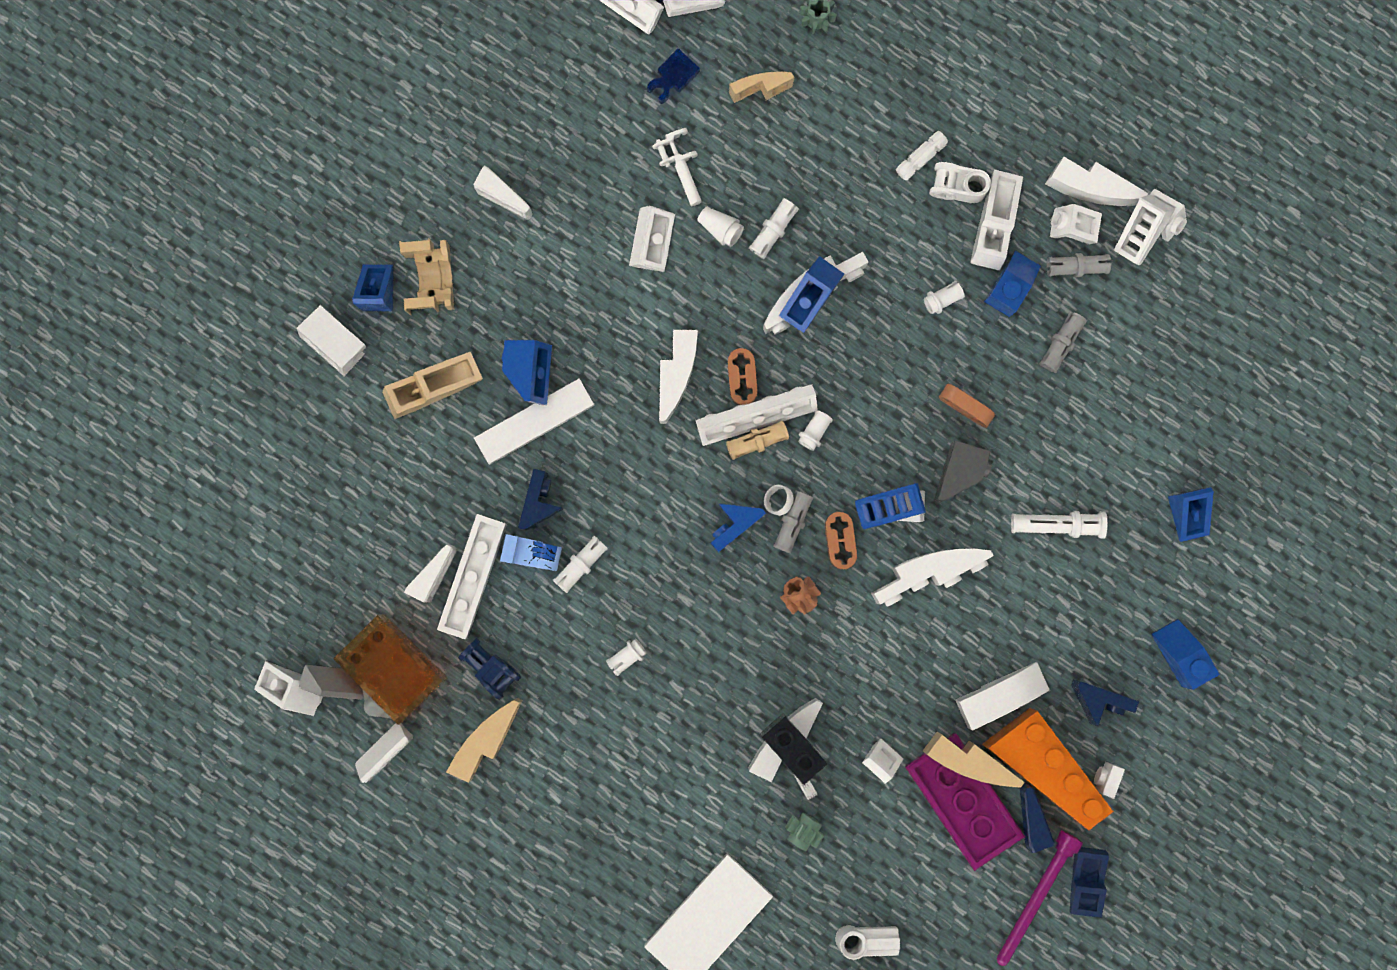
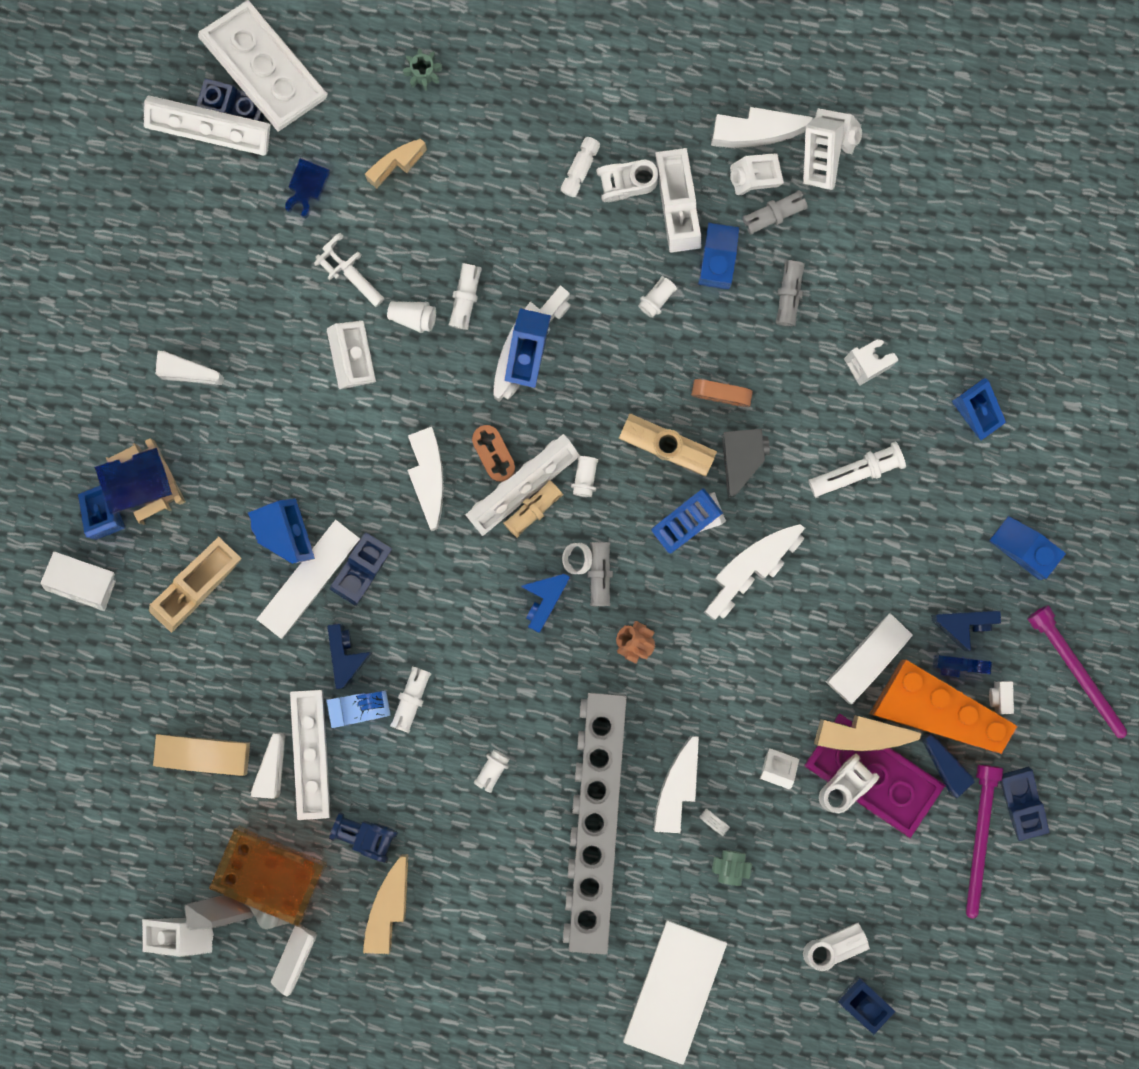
camera: 25 degrees left, 0 degrees up
(377, 537) = (201, 754): none -> tan slope
(414, 271) = (133, 481): none -> clear blue brick
(583, 431) = (360, 569): none -> dark blue slope
(658, 842) = (595, 937): none -> light grey brick
(793, 748) = (687, 791): black brick -> none
(848, 540) = (646, 577): nougat beam -> none
(914, 447) = (687, 453): none -> tan piece
(943, 798) = (848, 784): none -> white piece
(1075, 733) = (953, 665): none -> clear blue plate
(1107, 432) = (866, 365): none -> white hinge
(1173, 725) = (1044, 621): none -> magenta piece

